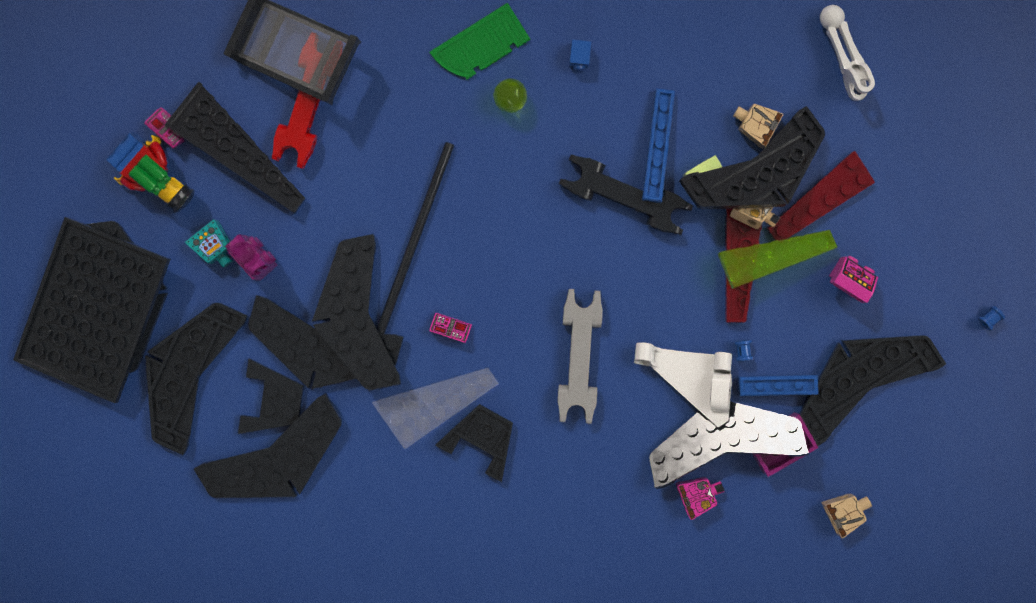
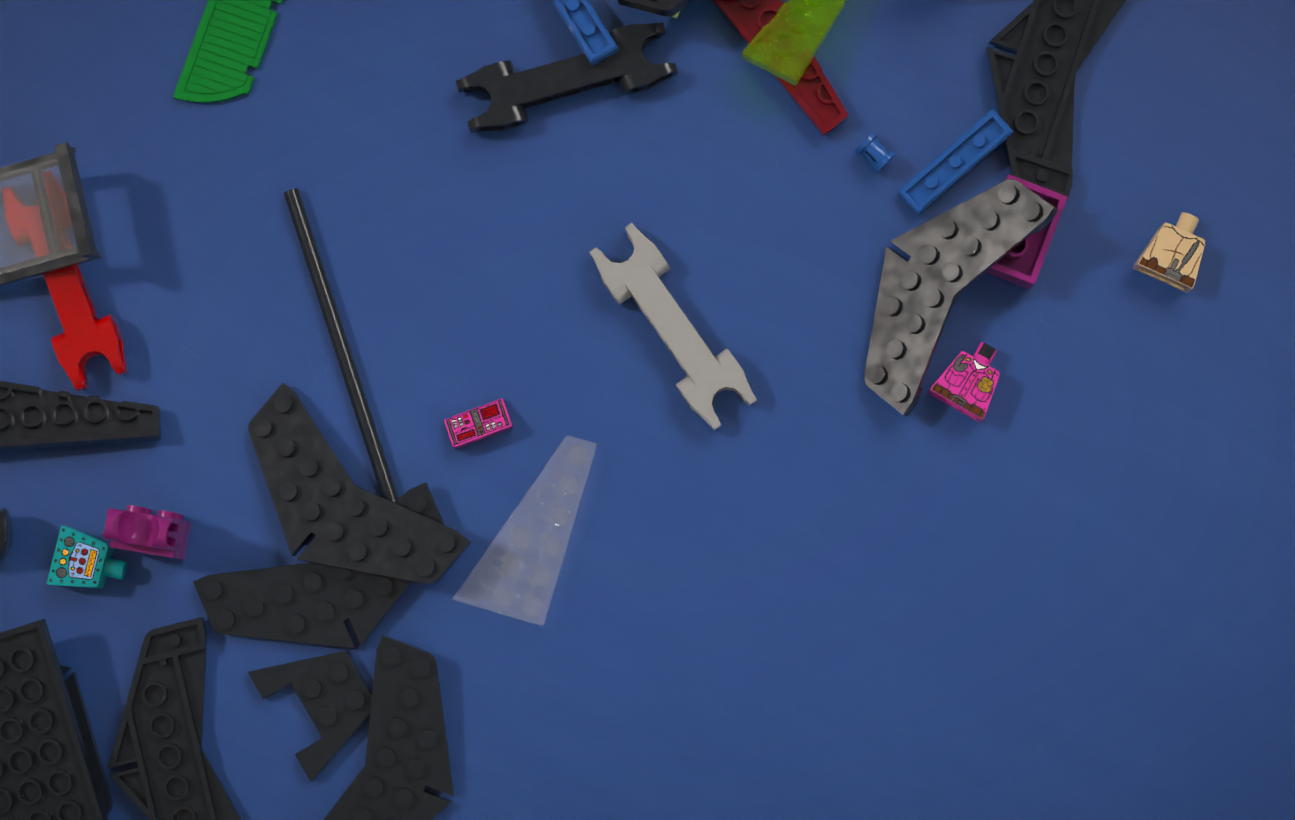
camera: 30 degrees left, 5 degrees down
(486, 431) = (631, 519): black wing -> none
(510, 95) = (319, 68): clear neon green piece -> none
(697, 376) = (843, 234): white panel -> none

